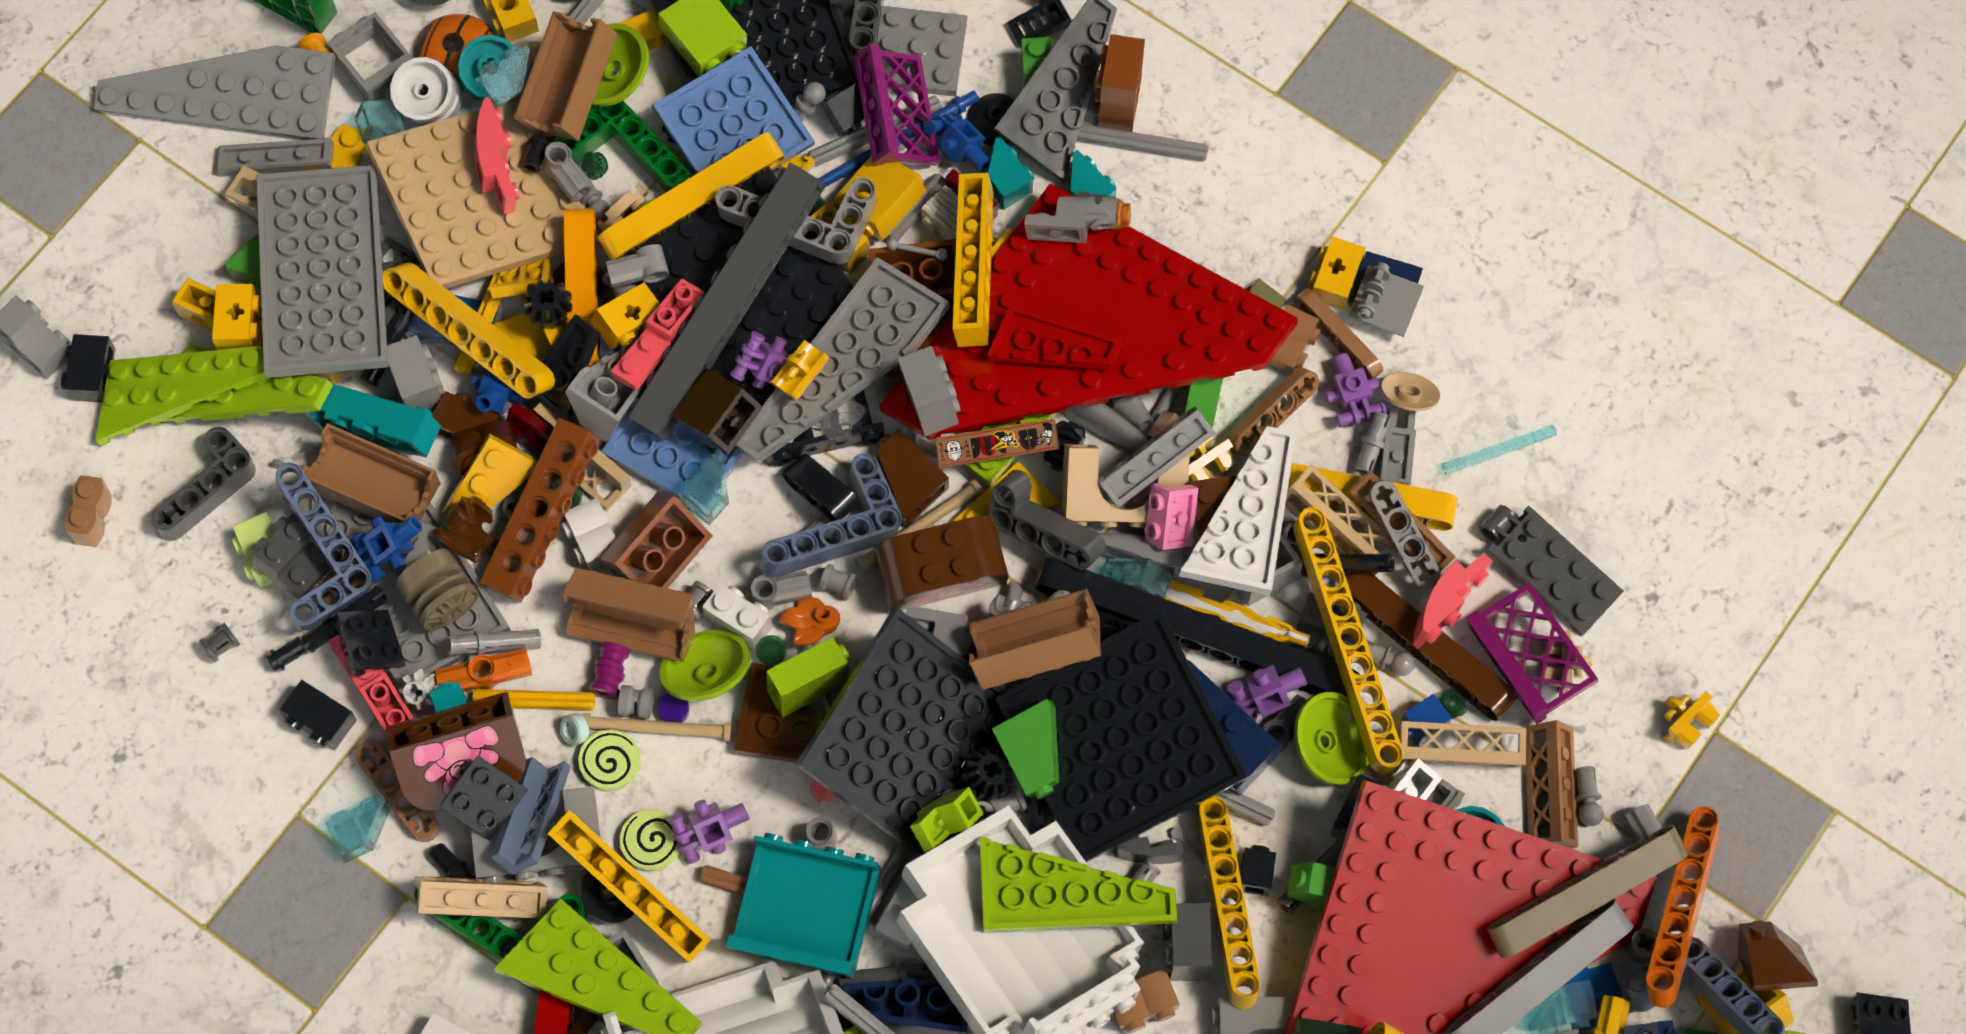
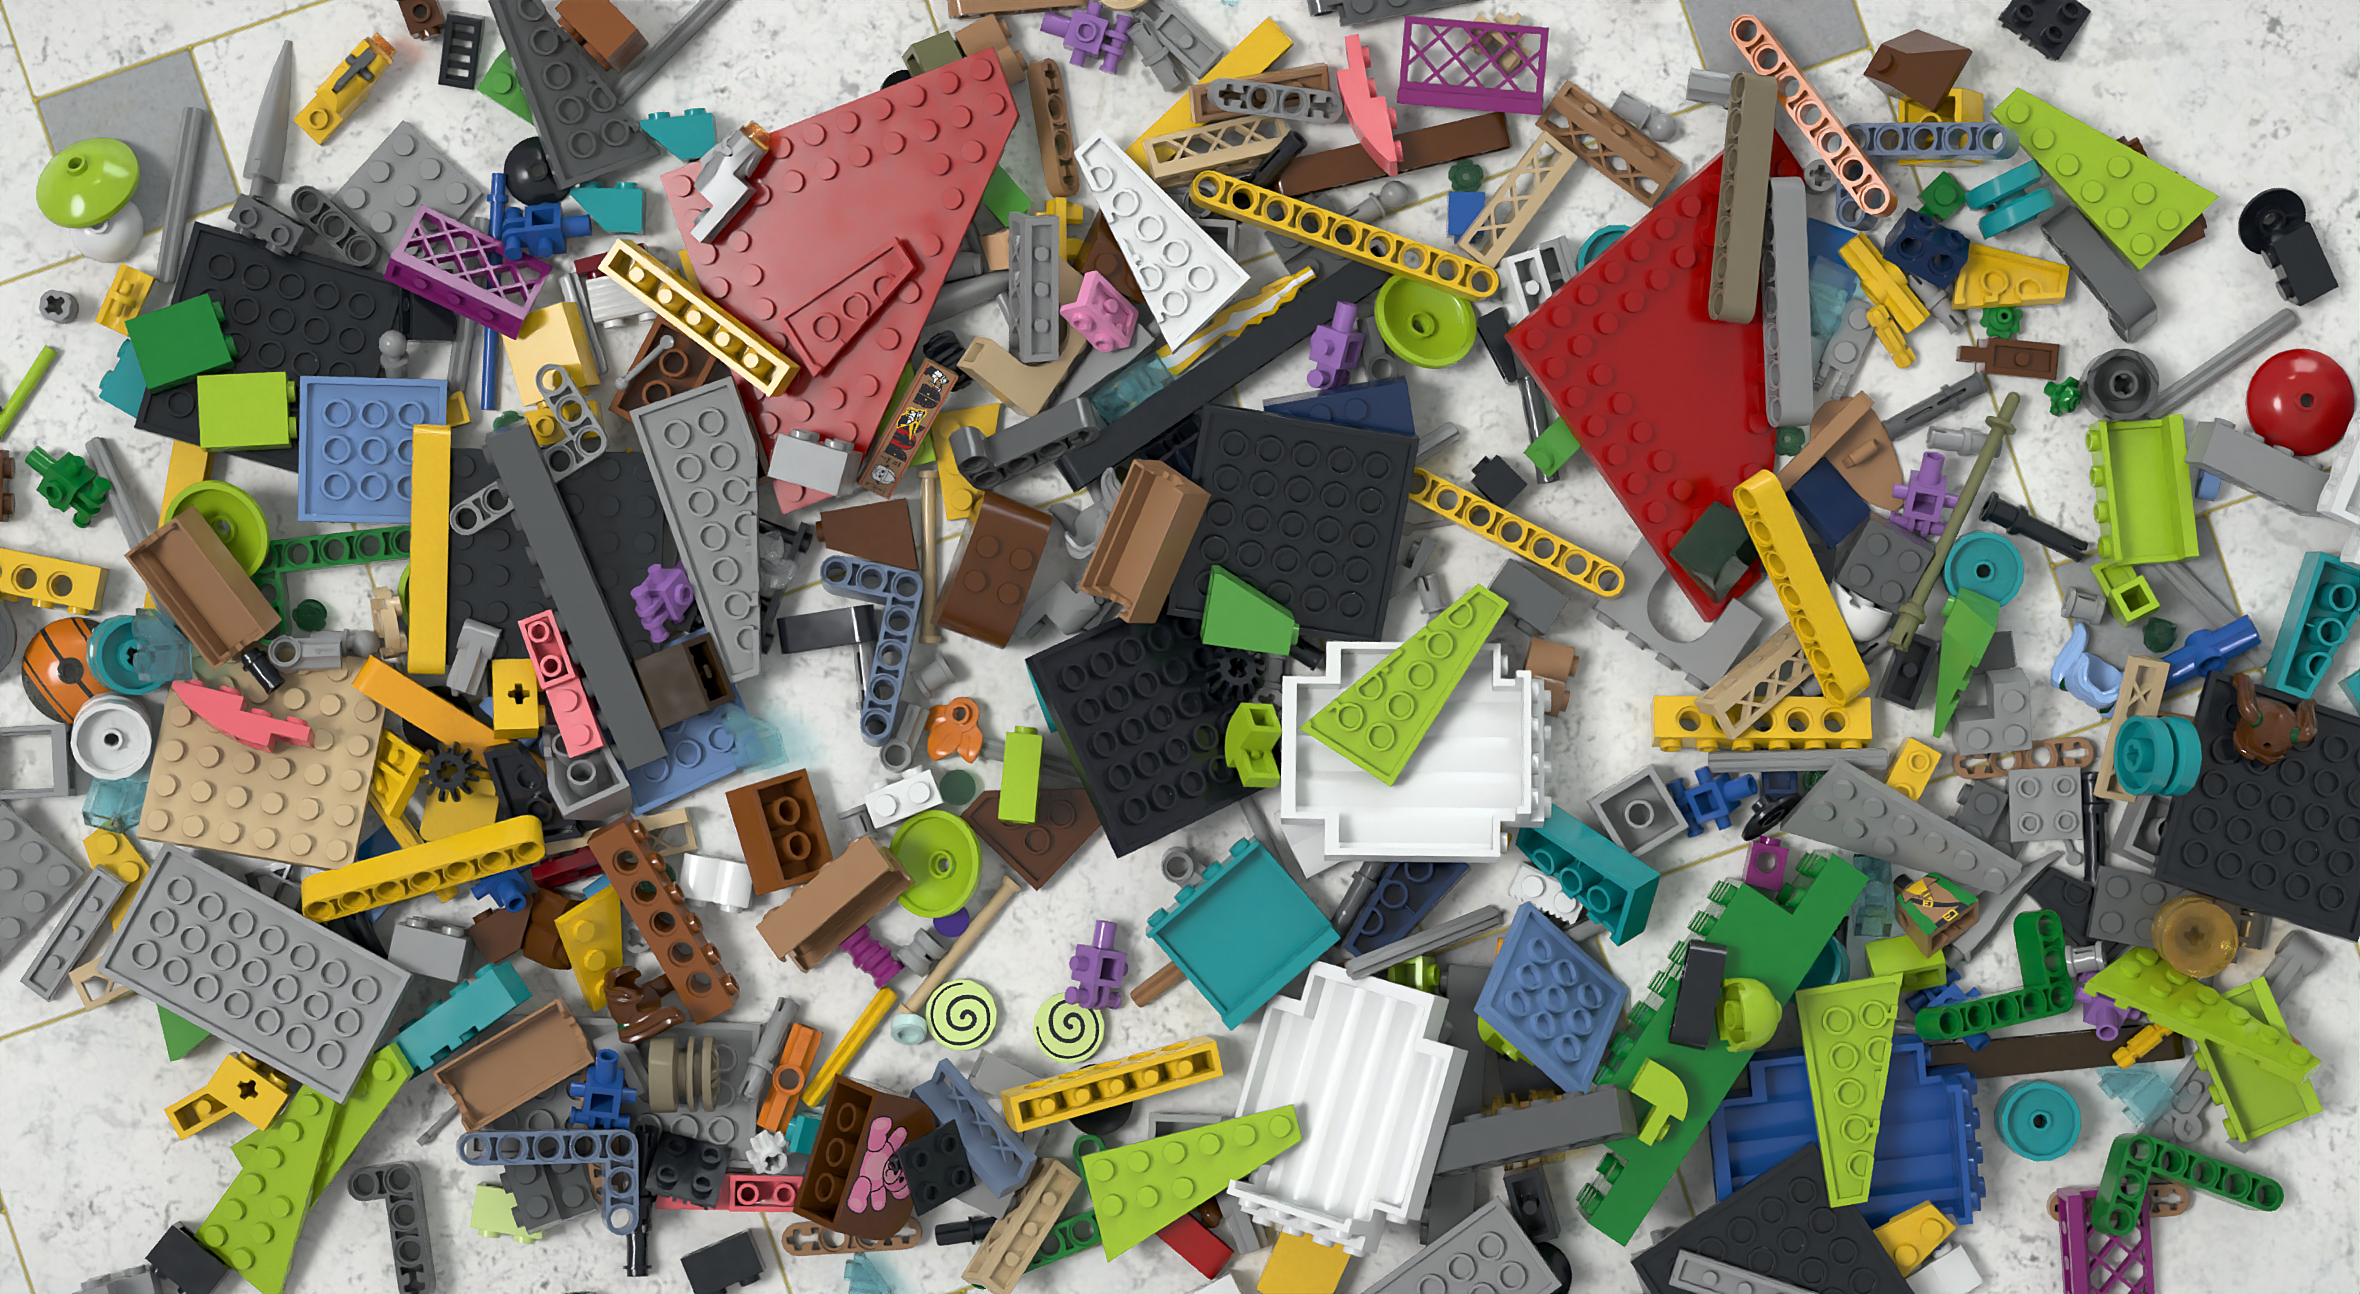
camera: 50 degrees left, 20 degrees up
(800, 370) = (703, 573): yellow hips -> none

